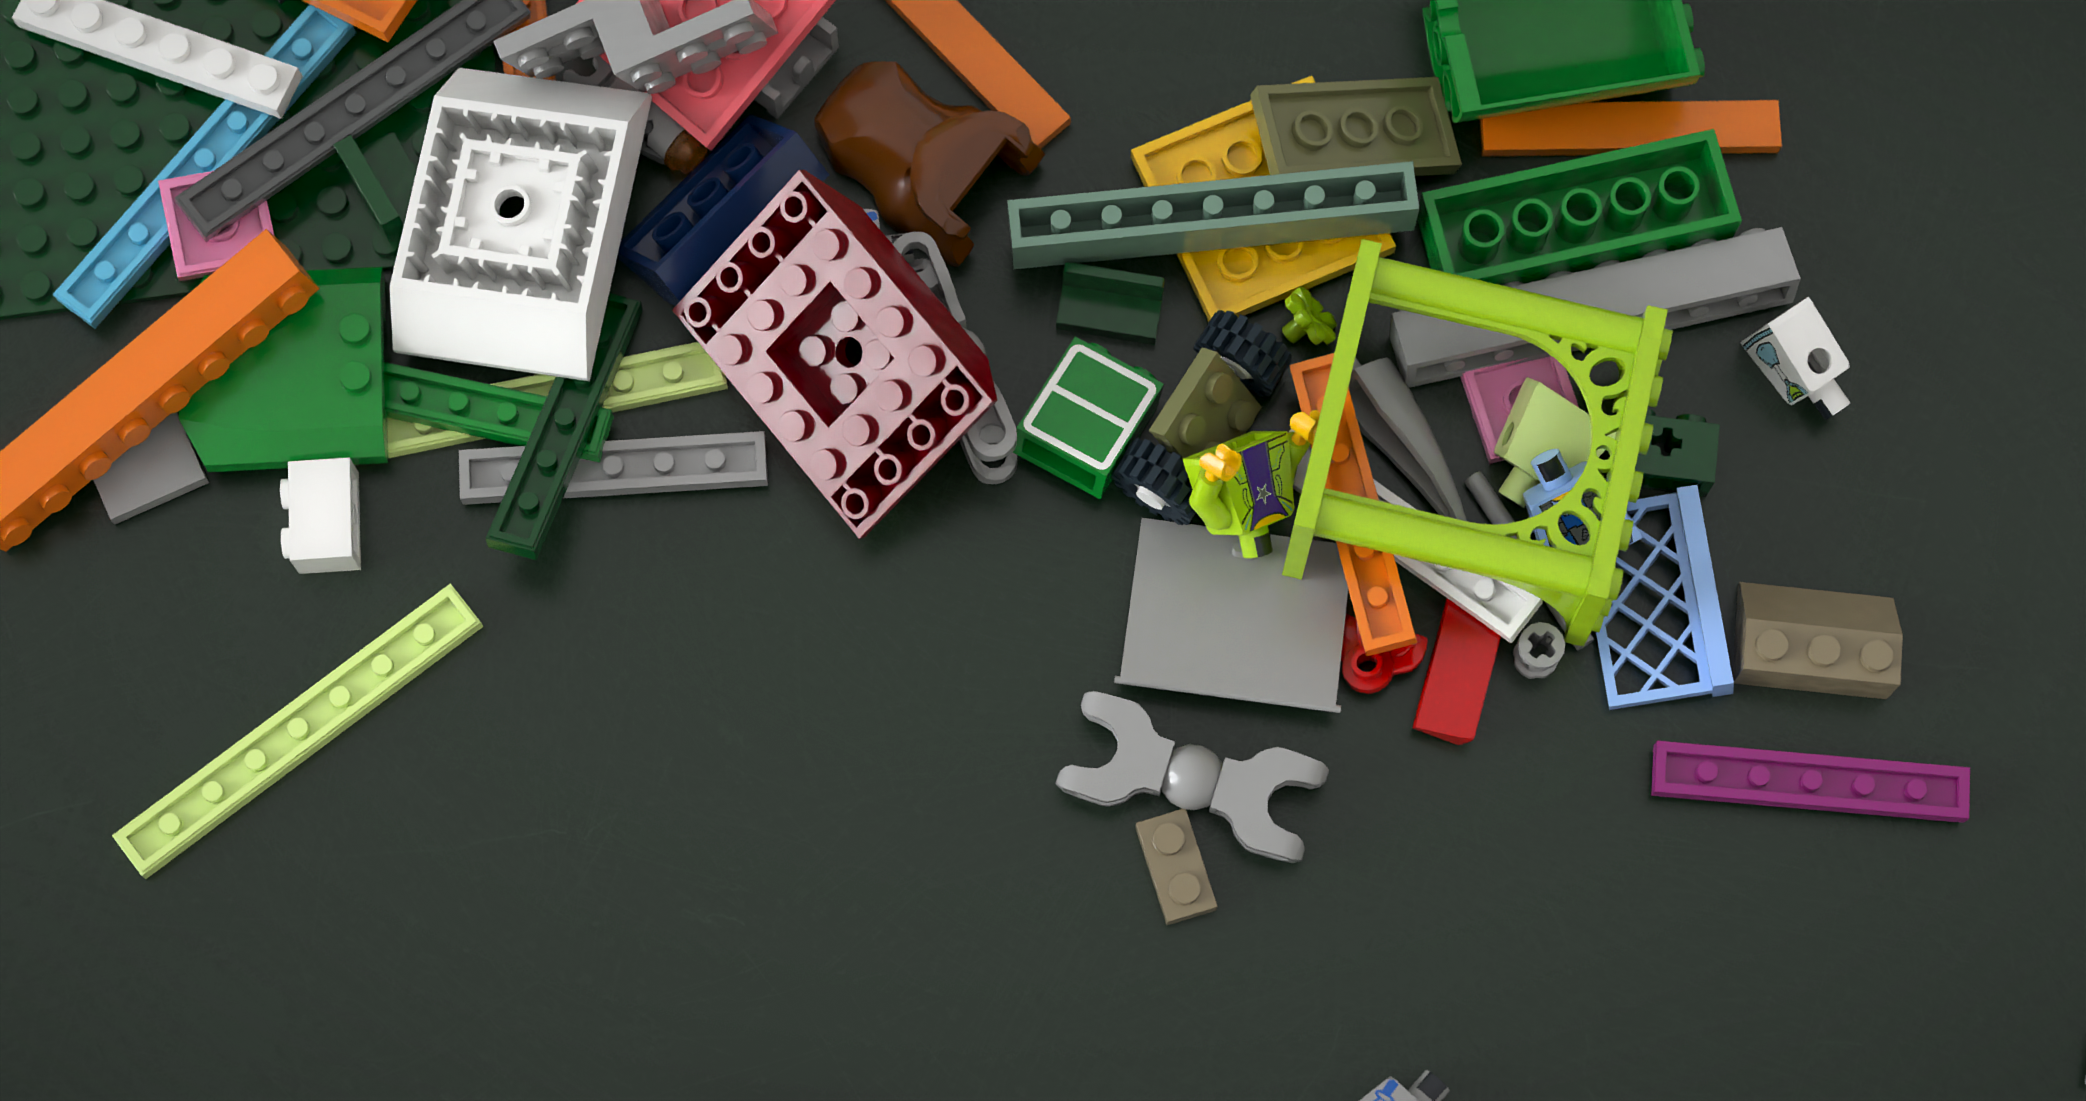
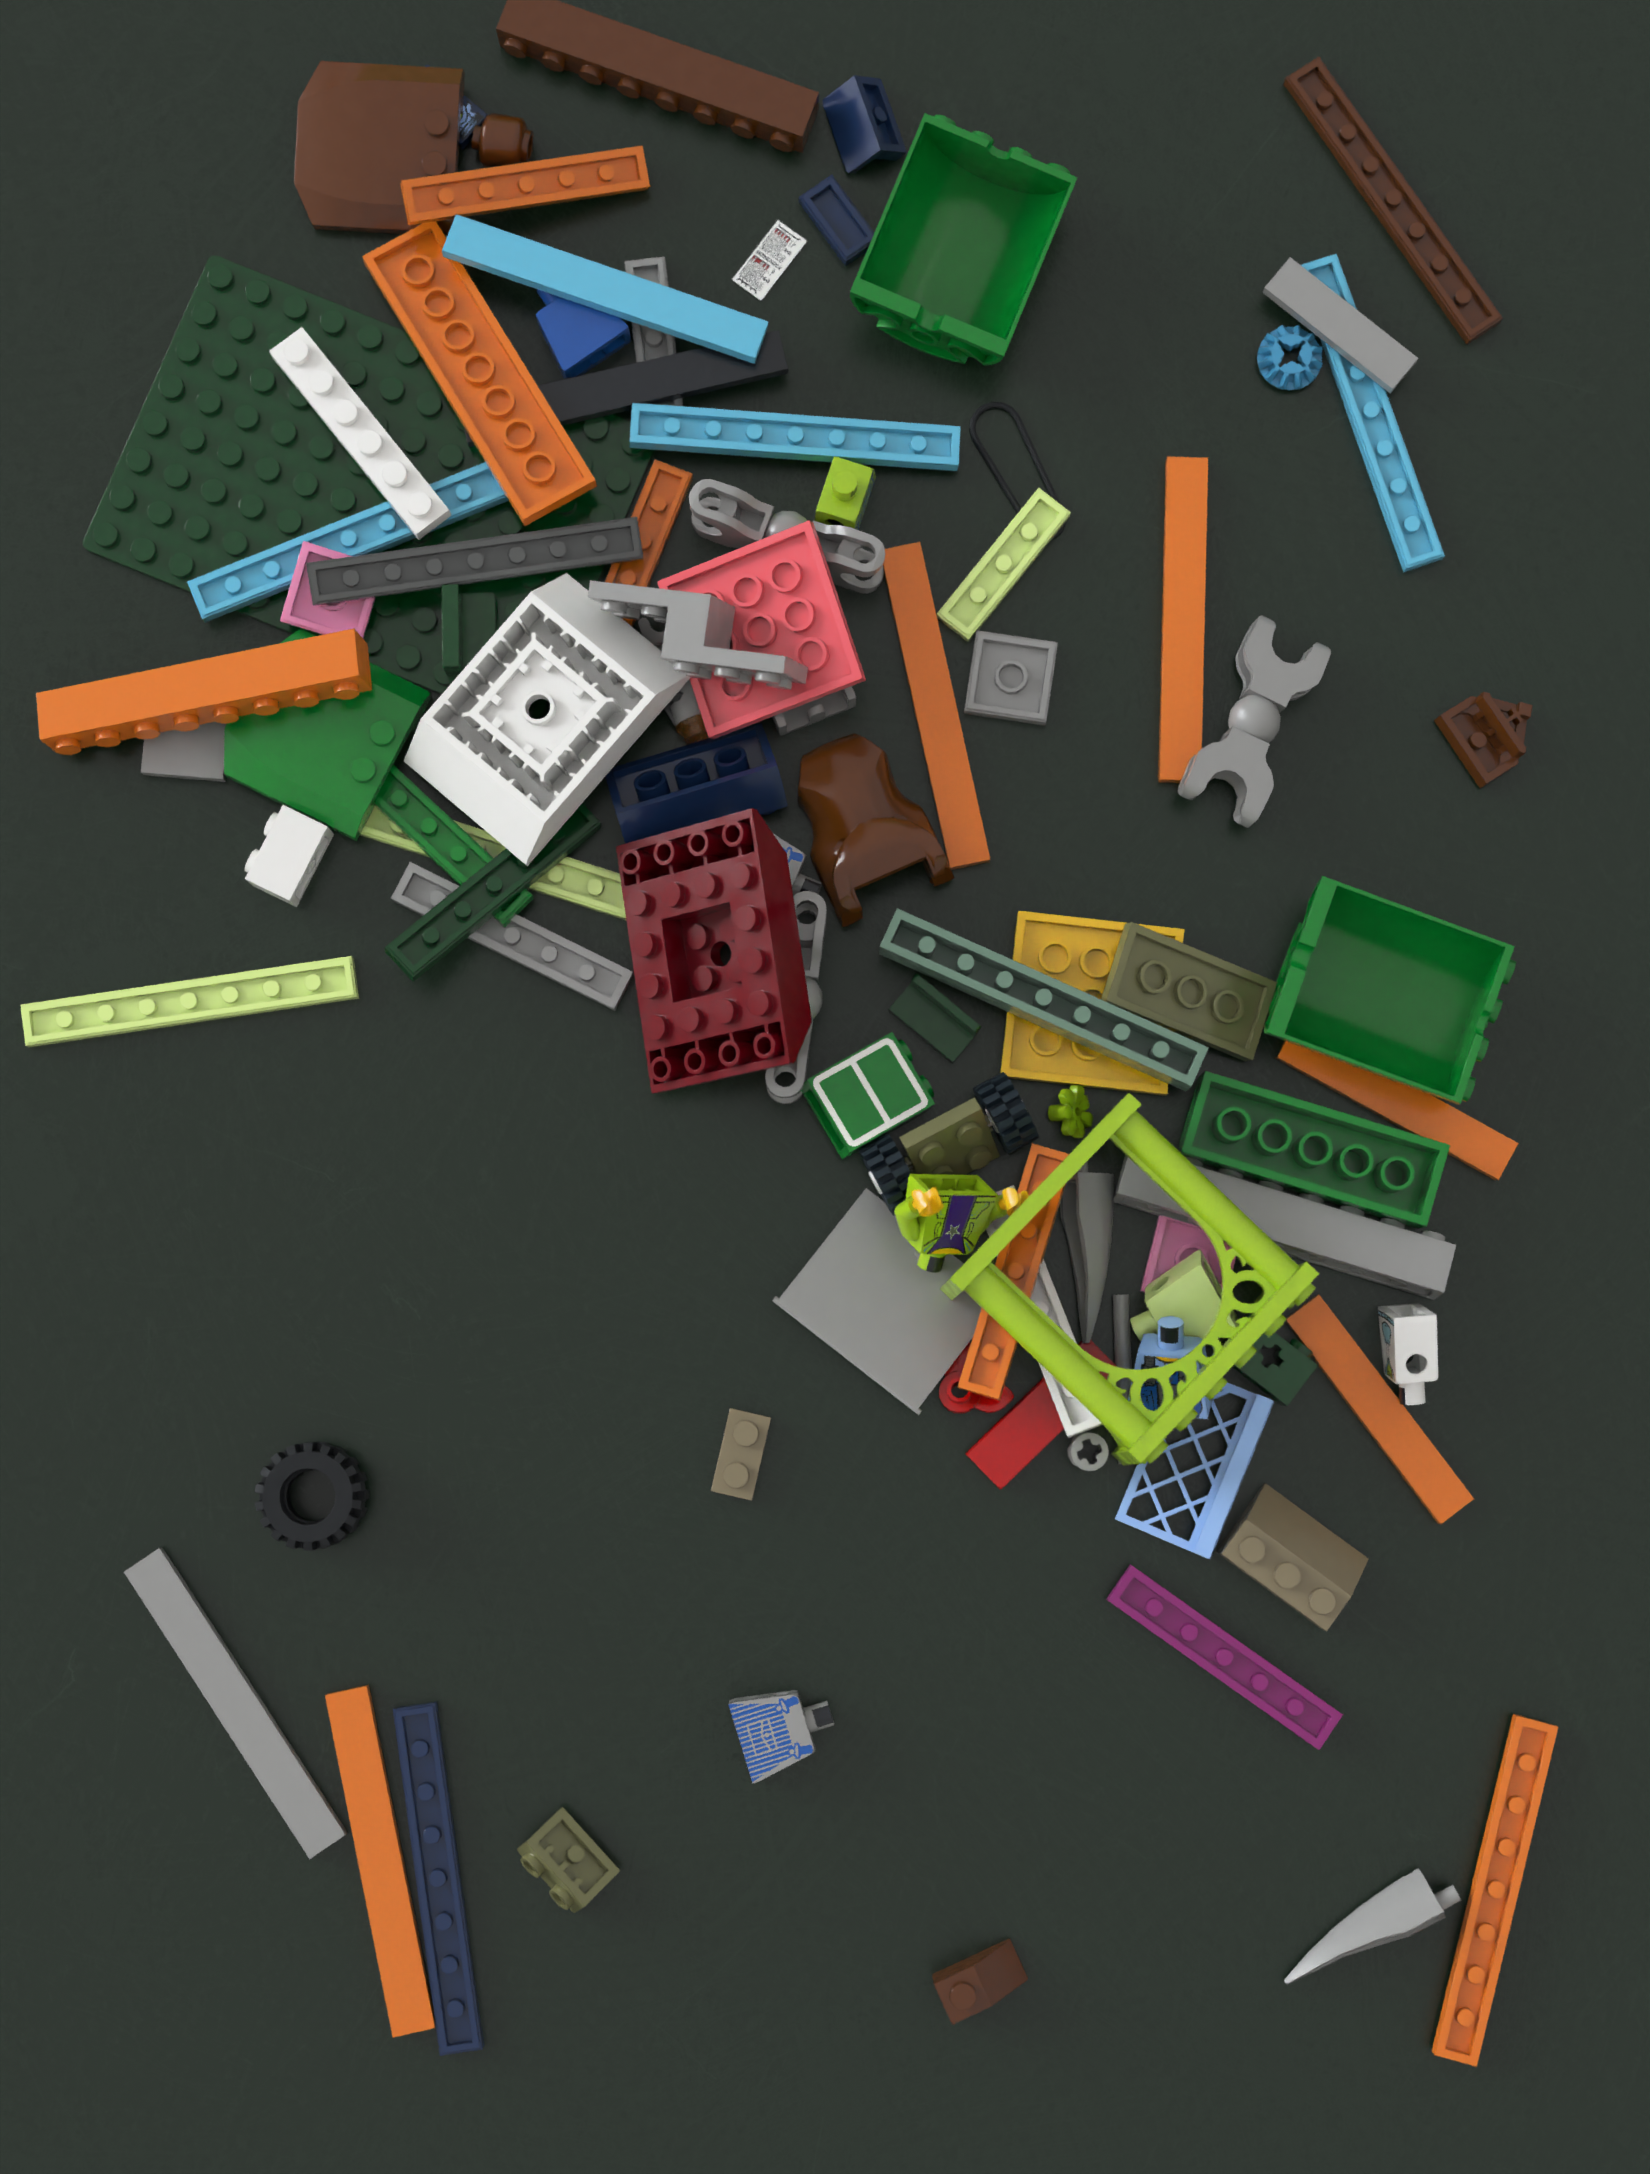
camera: 30 degrees right, 10 degrees up
(1192, 777) = (787, 1399): light grey piece -> none
(1810, 442) = (1379, 1409): none -> orange tile

